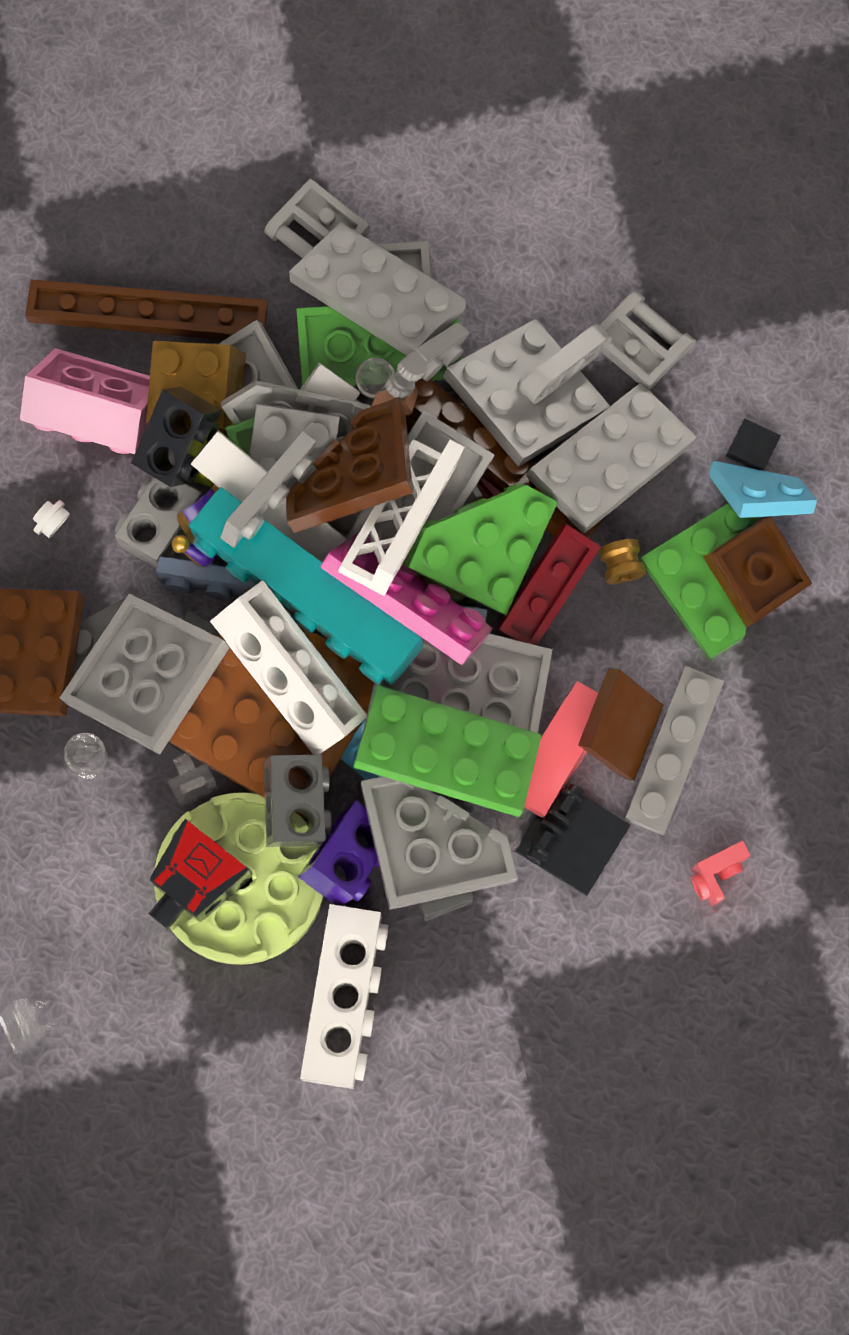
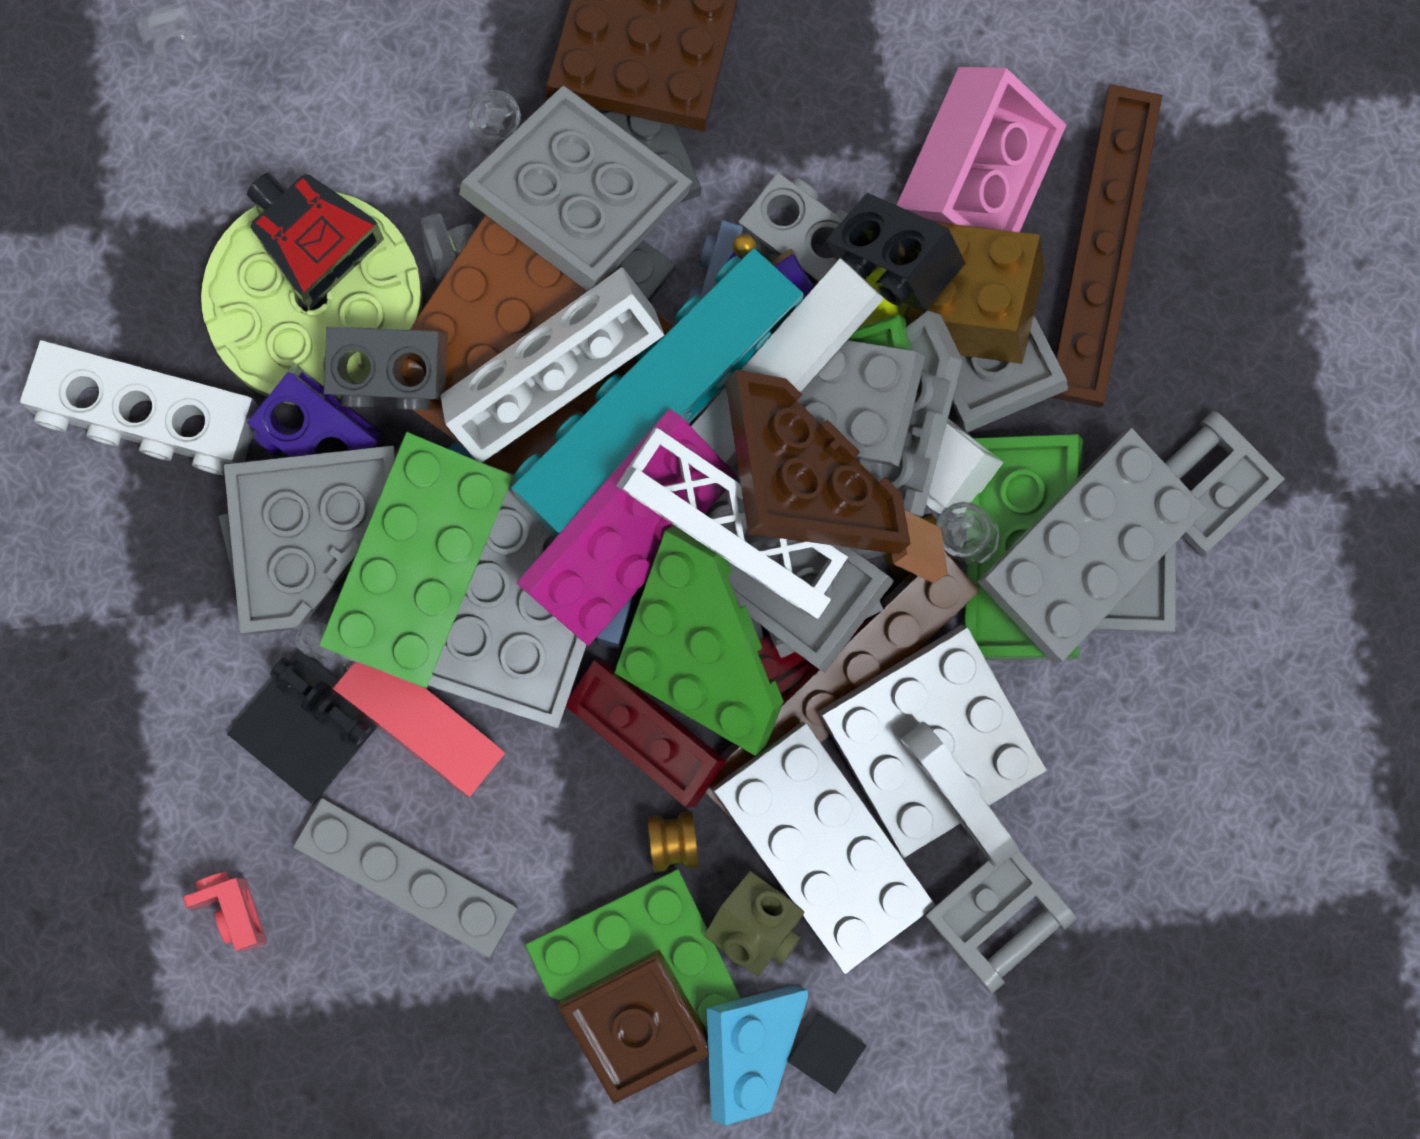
camera: 95 degrees right, 5 degrees up
(50, 518) = (820, 99): white plate -> none
(269, 491) = (781, 352): light grey plate -> none
(427, 360) = (967, 592): light grey hinge -> none
(621, 724) = (438, 803): reddish brown tile -> none
(674, 496) = (756, 925): none -> olive brick

